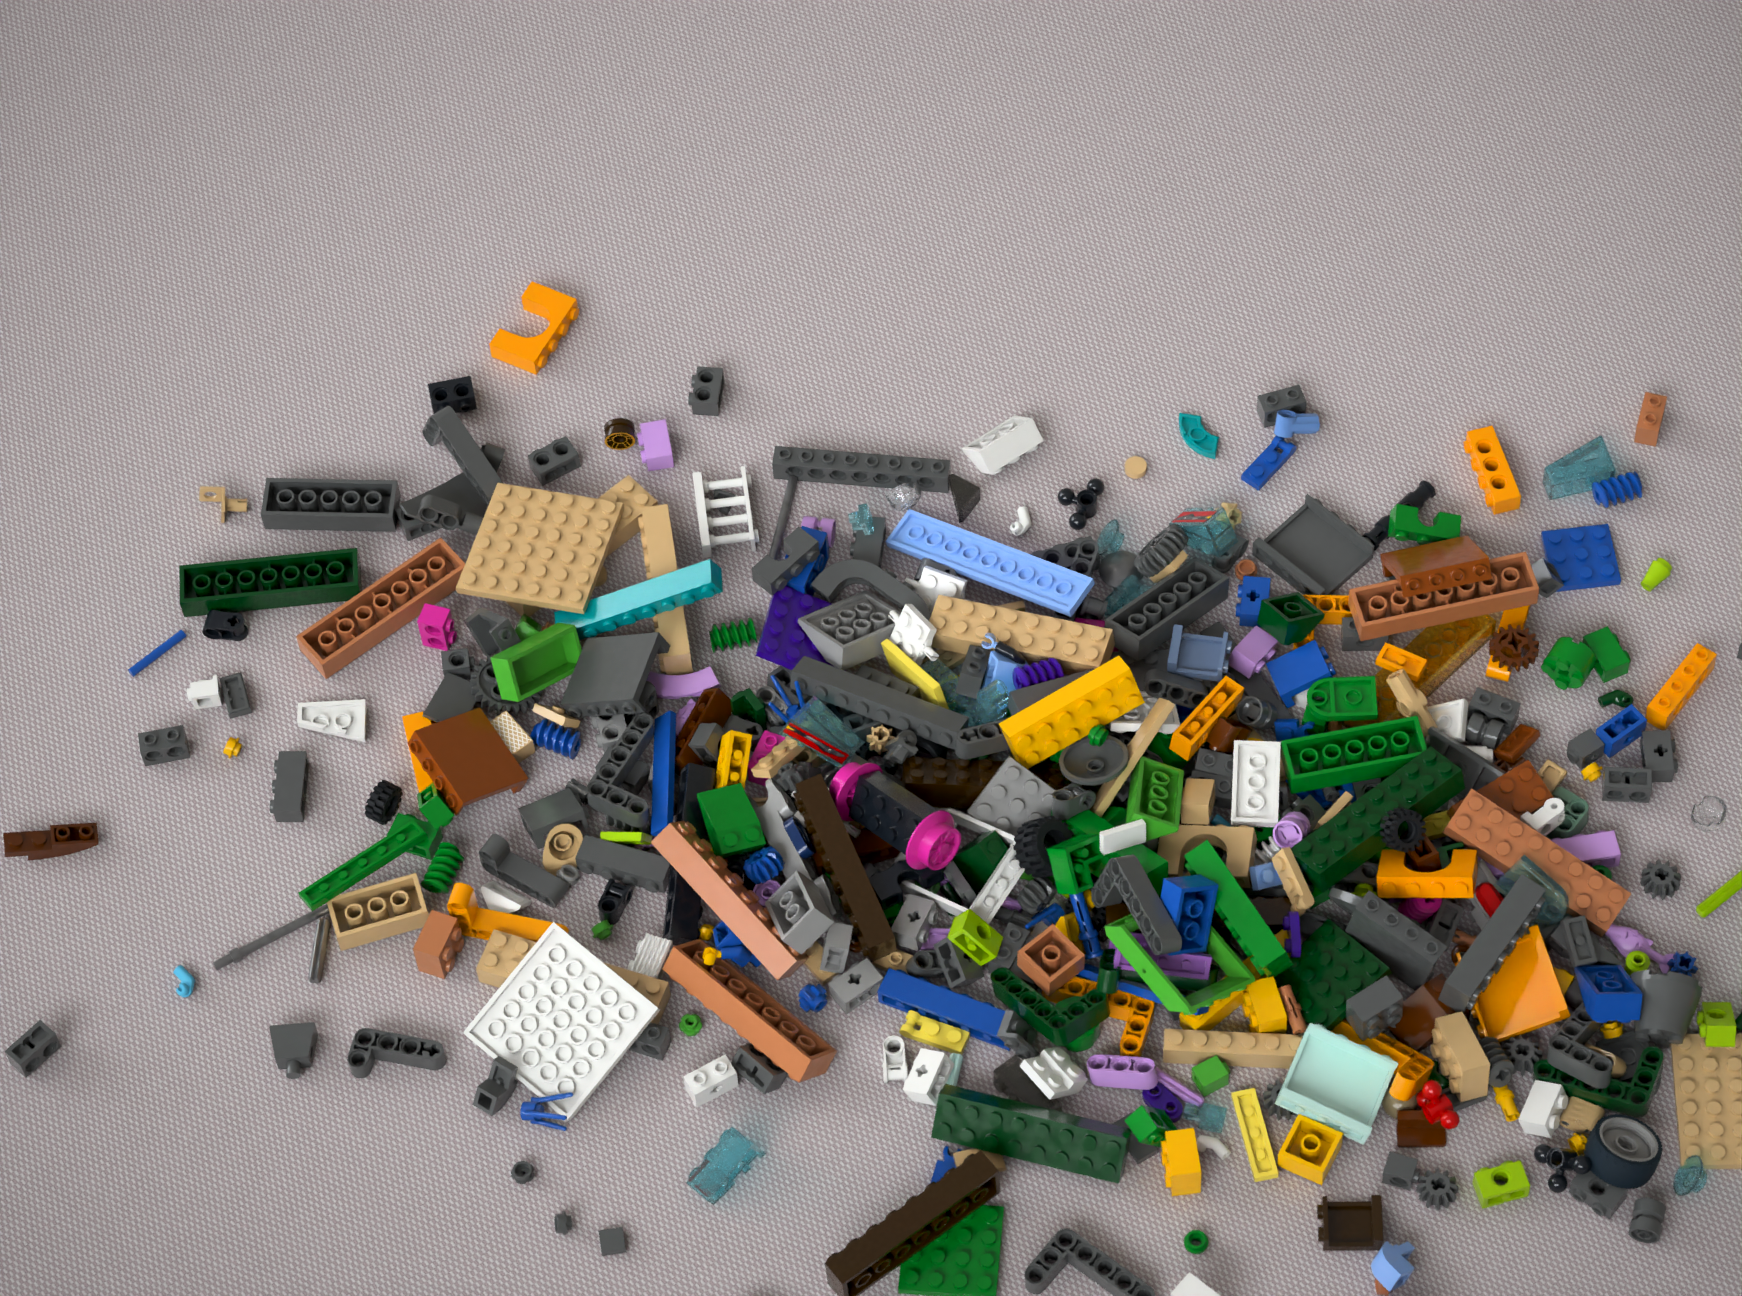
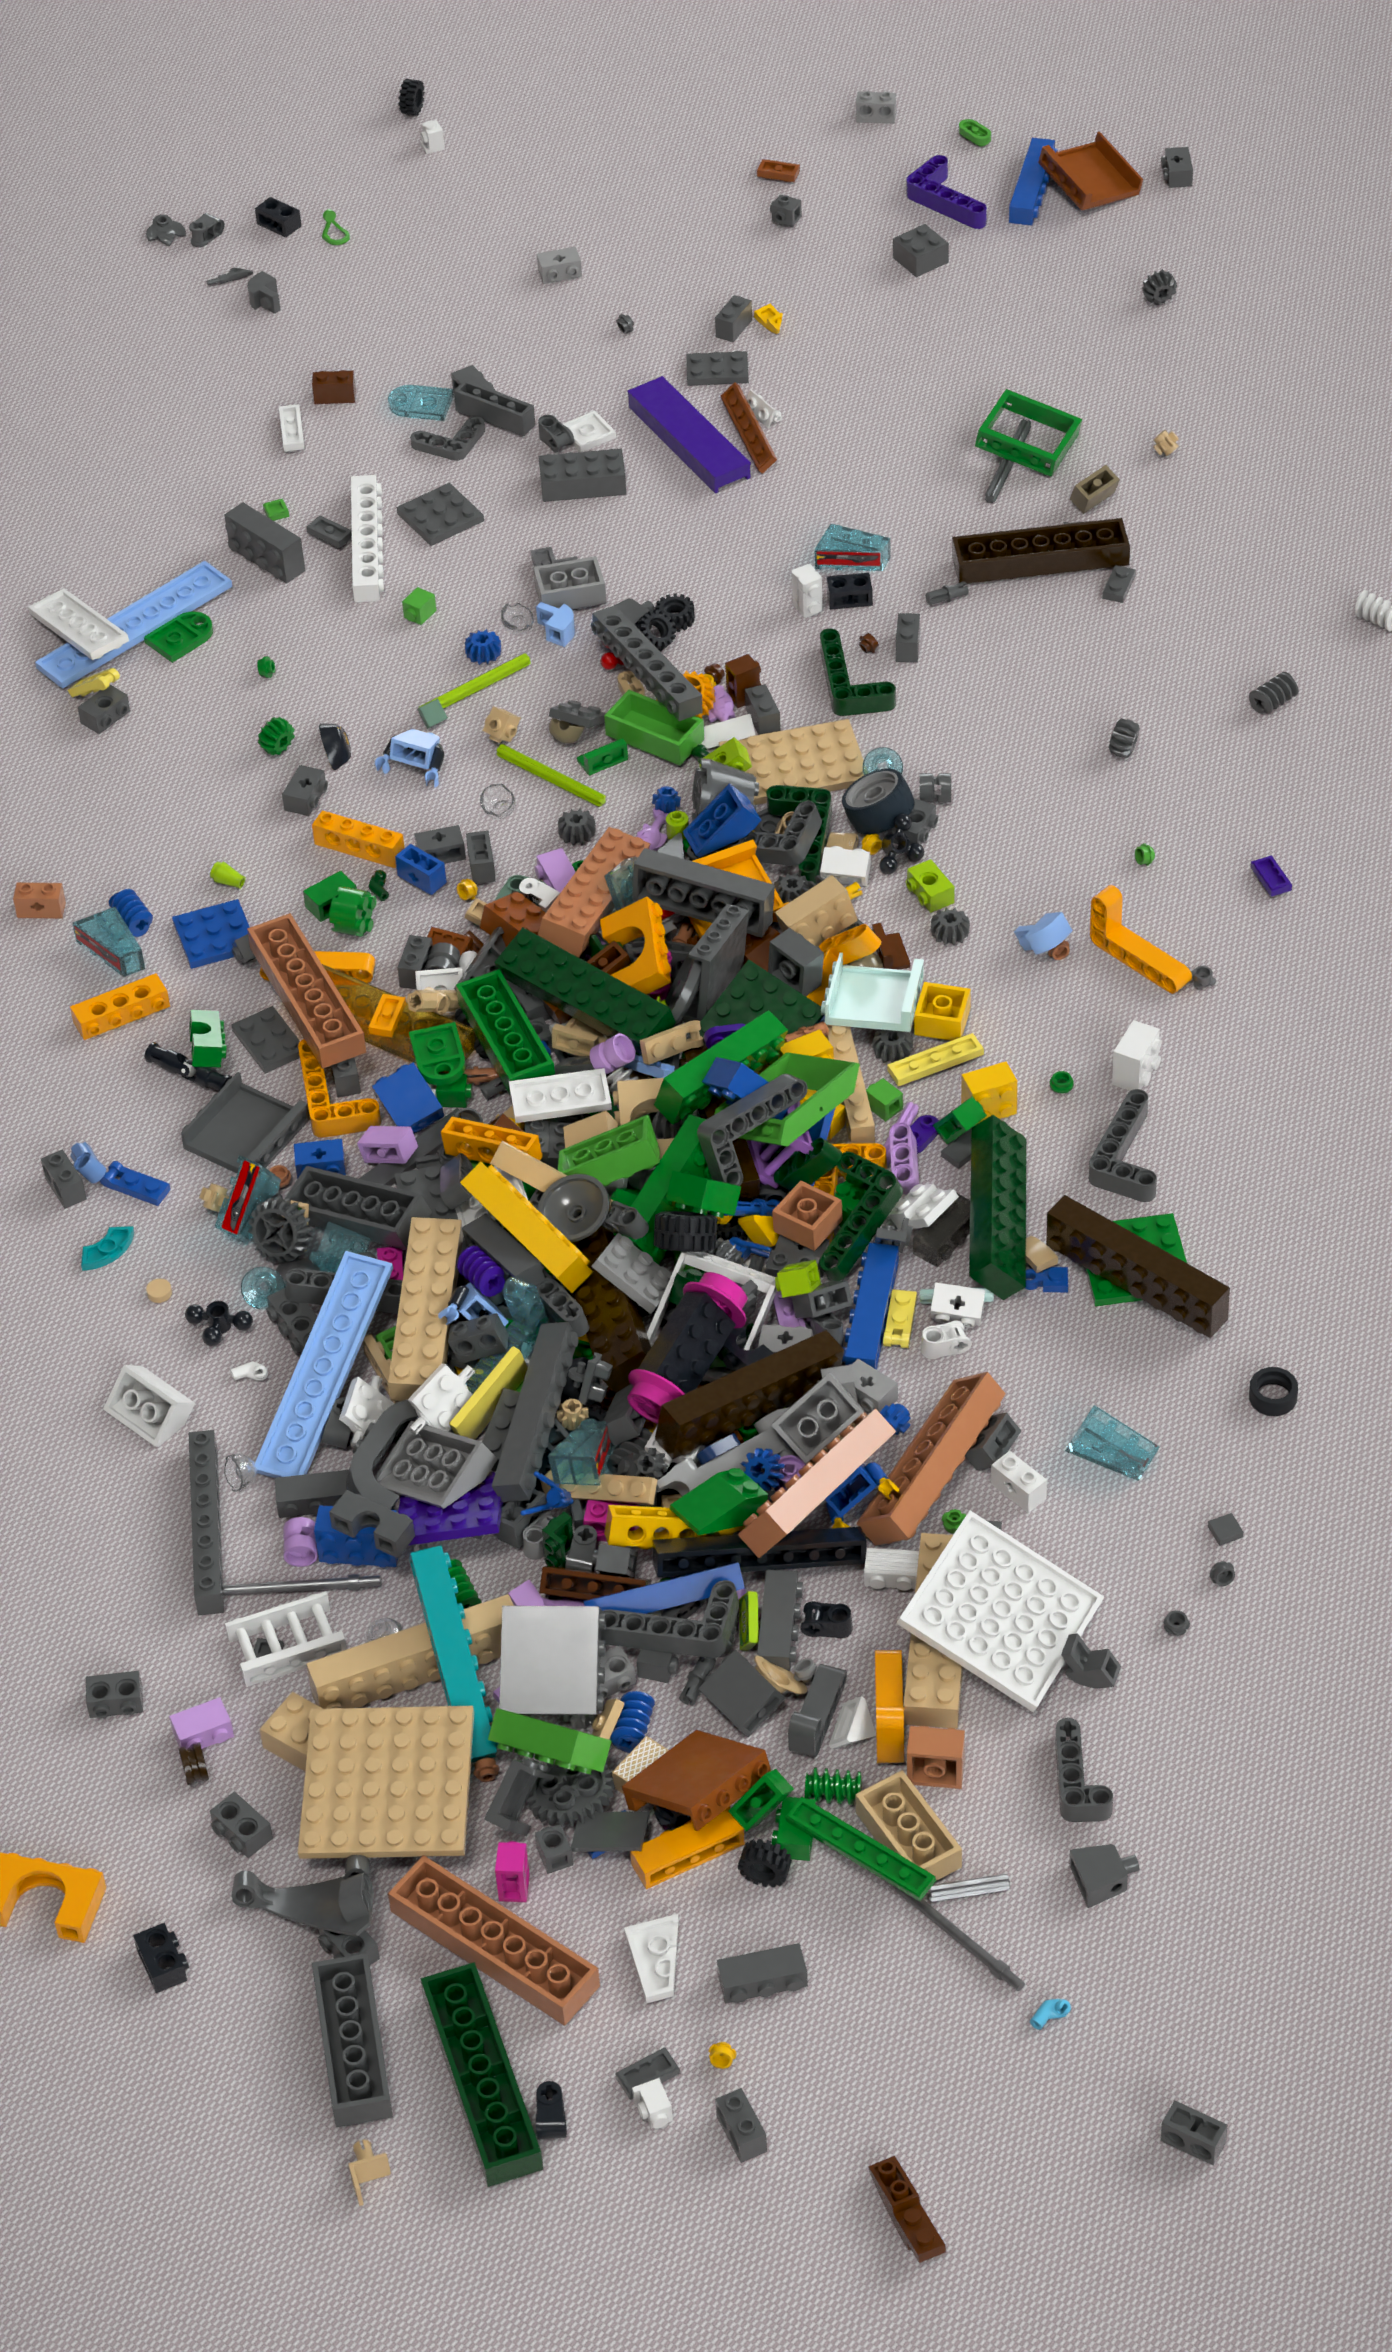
camera: 105 degrees left, 10 degrees down
(156, 653) = (603, 2184): blue bar -> none
(449, 429) = (247, 1903): dark grey beam -> none
(527, 627) = (492, 1779): bright green slope -> none
(534, 1112) = (1106, 1624): blue plant -> none
(602, 930) = (864, 1623): bright green plate -> none
(862, 519) = (288, 1486): clear light blue tile -> none
(964, 496) = (230, 1423): clear smoke slope -> none
(1098, 735) = (547, 1203): green plate -> none
(1122, 836) = (671, 1152): white tile -> none
(1198, 655) = (412, 1164): sand blue panel -> none
(1209, 1117) = (926, 1097): clear light blue plate -> none
(1212, 1143) = (954, 1090): white arm -> none
(1289, 617) = (347, 1112): dark green slope -> none
(1291, 729) = (474, 1098): blue plate -> none
(1351, 1225) = (1004, 977): dark brown panel -> none
(1400, 1171) = (940, 953): dark grey brick -> none
(1413, 834) = (602, 958): black tyre -> none
(1437, 565) = (267, 998): dark orange panel -> none
(1437, 1106) = (879, 920): red piece -> none
(1507, 642) = (347, 945): reddish brown gear -> none
(1578, 941) = (677, 846): dark grey plate -> none
(1585, 749) = (443, 895): dark grey brick -> none

